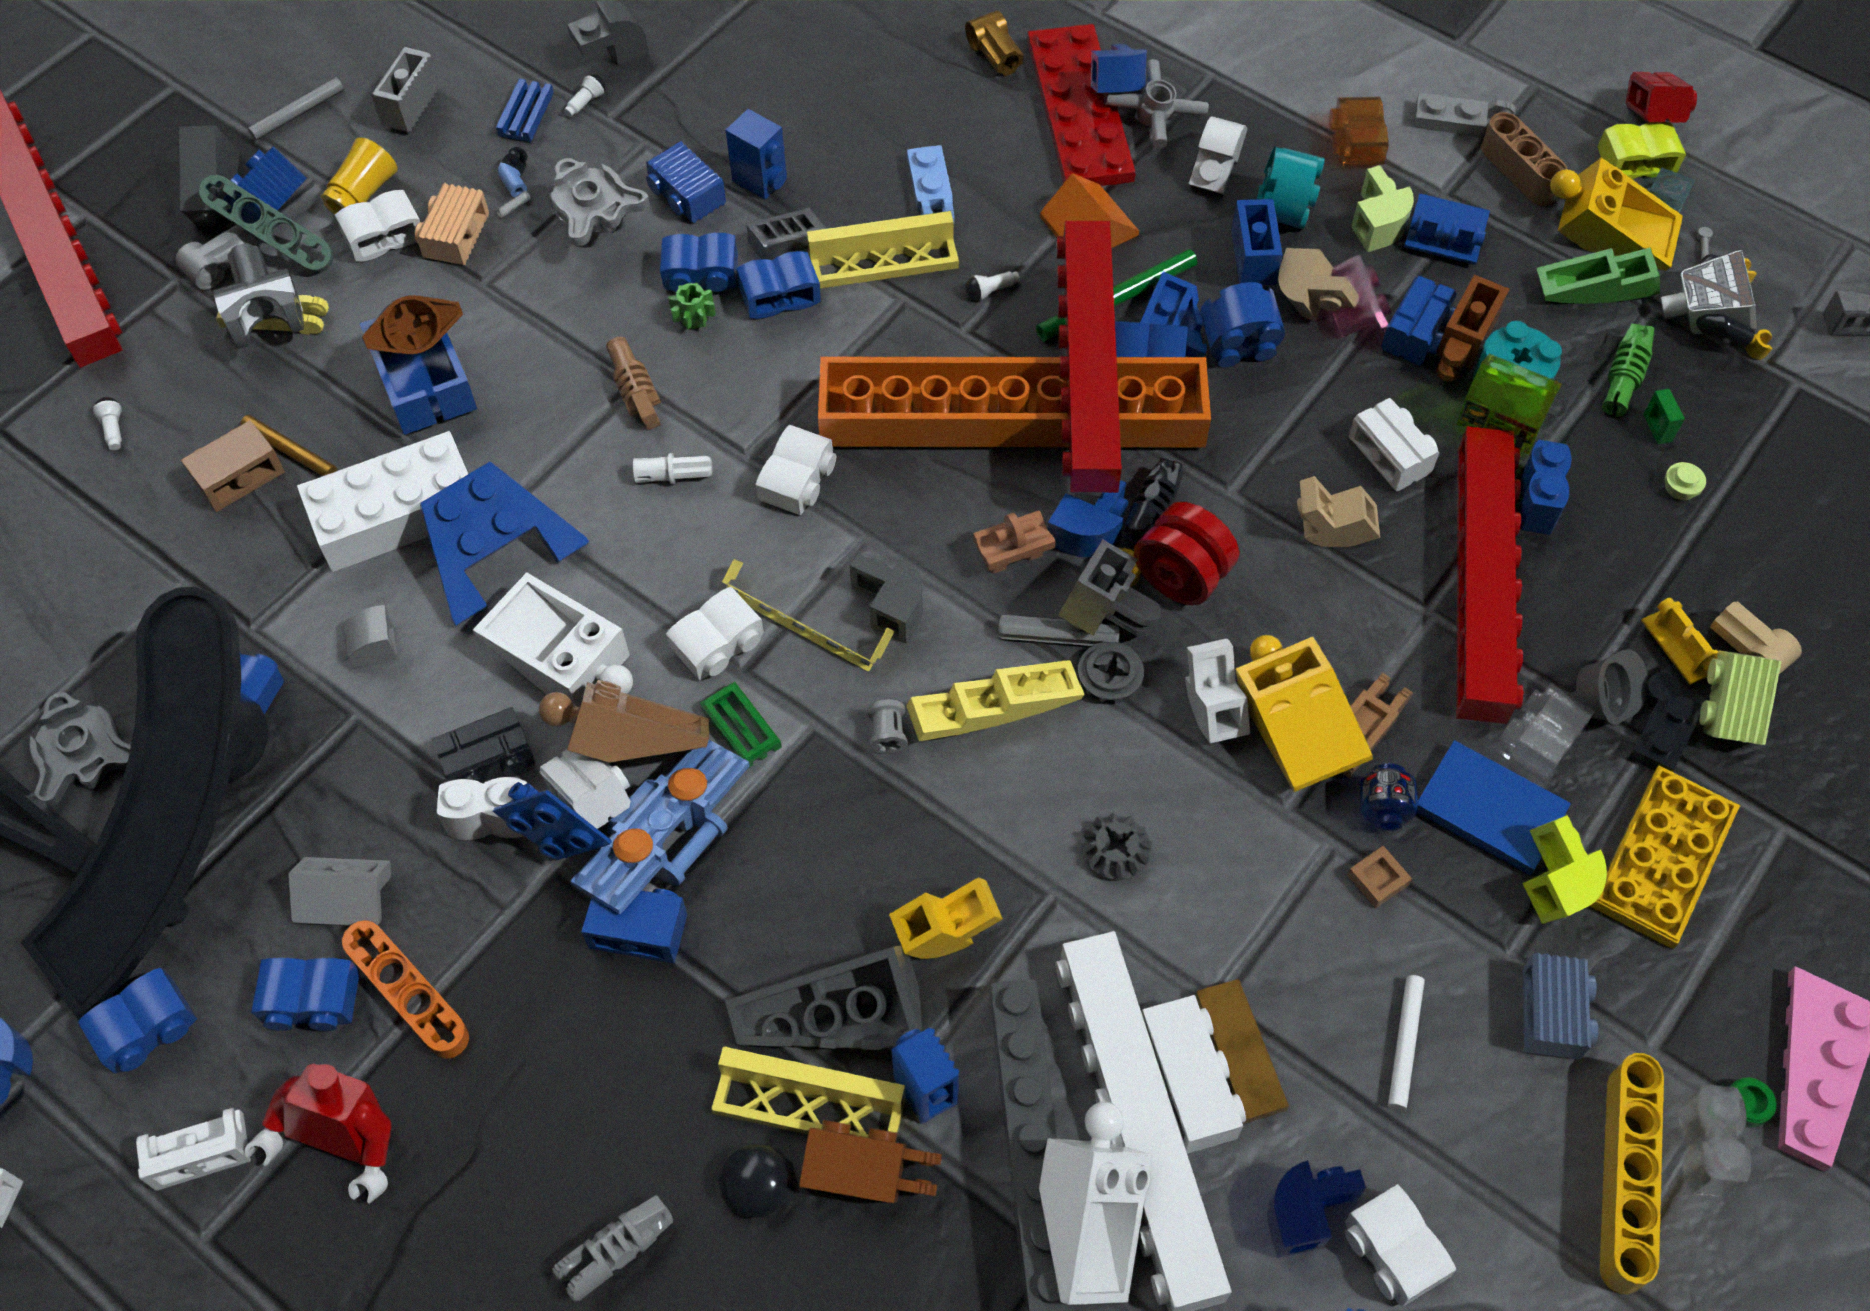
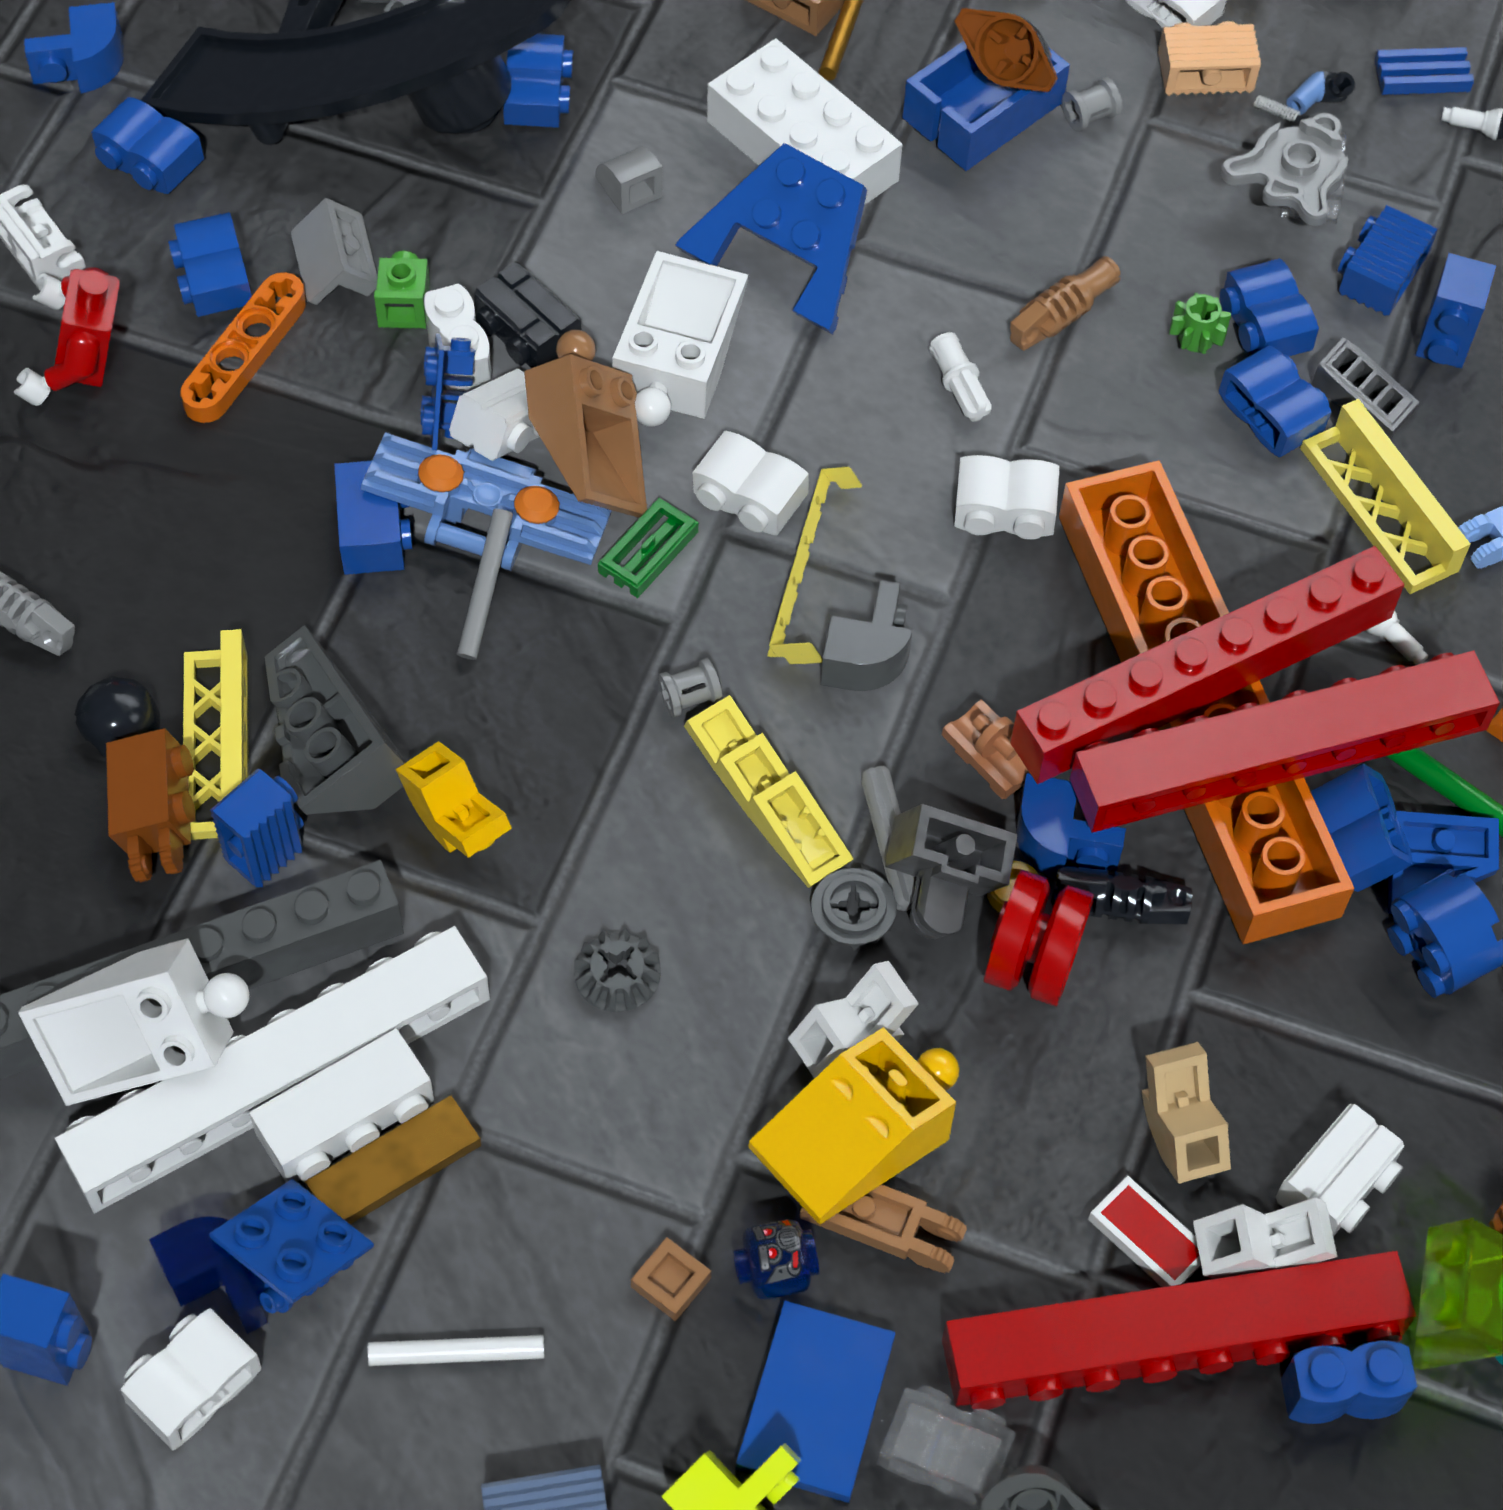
camera: 70 degrees right, 0 degrees up
(414, 851) = (402, 281): none -> bright green brick
(465, 297) = (1091, 104): none -> light grey bush
(741, 847) = (484, 584): none -> light grey bar
(1017, 379) = (1207, 662): none -> brick
(1311, 1135) = (291, 1244): none -> blue hinge
(1410, 568) = (1148, 1234): none -> tile
(1440, 500) = (1254, 1242): none -> white brick

